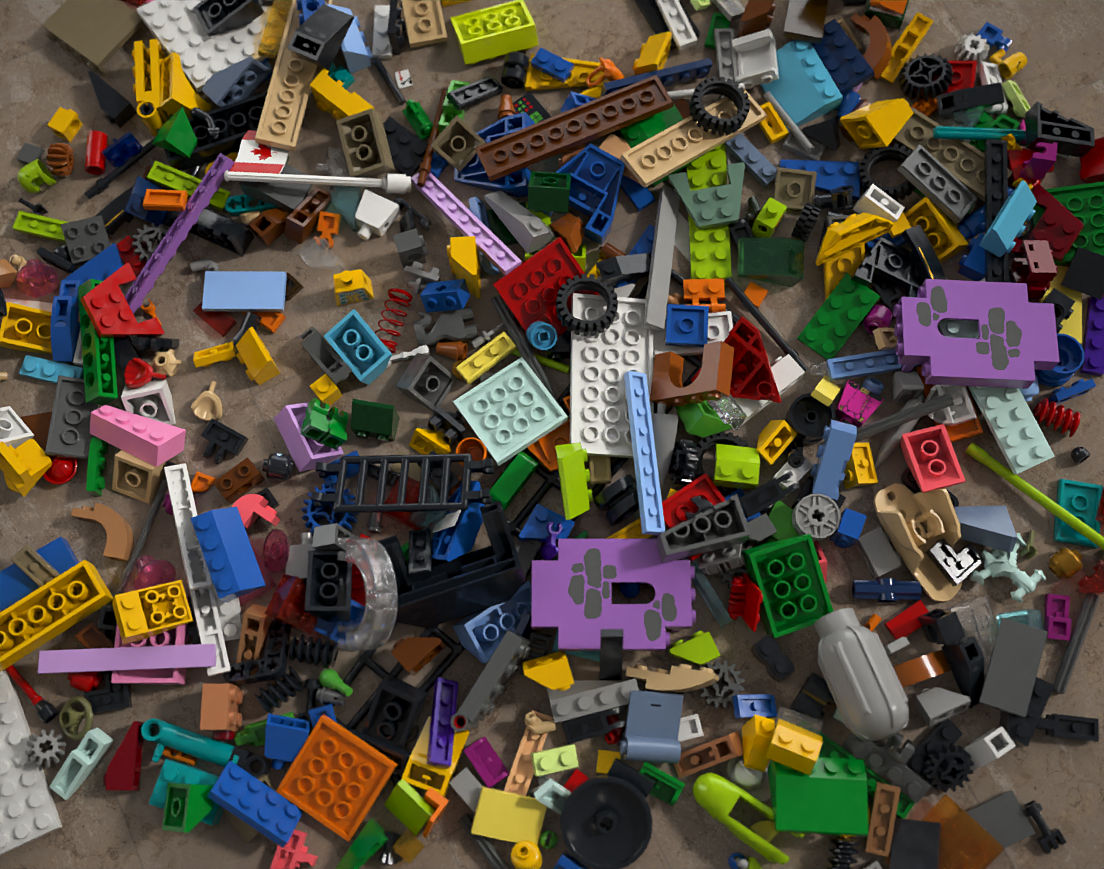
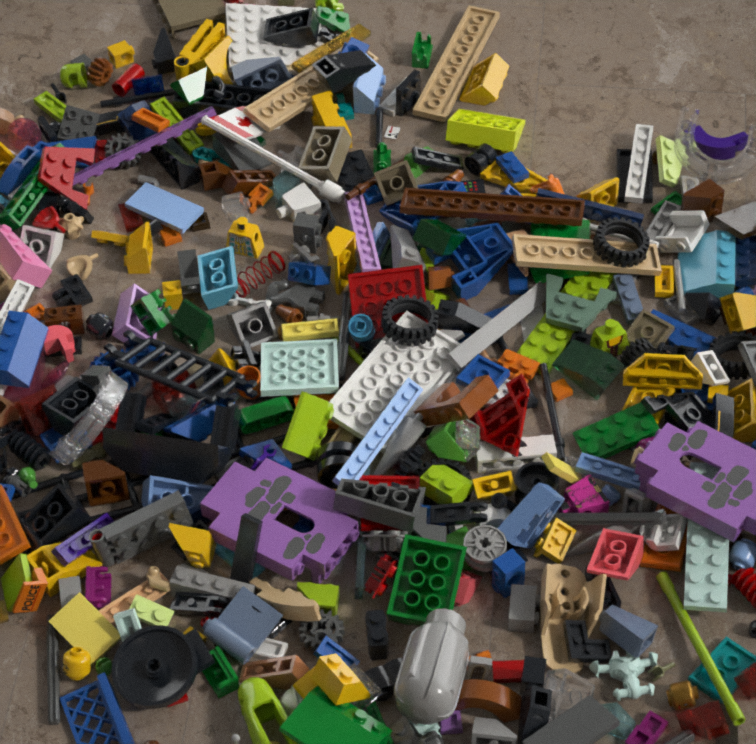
camera: 30 degrees right, 25 degrees down
(886, 590) = (510, 637): dark blue piece -> none

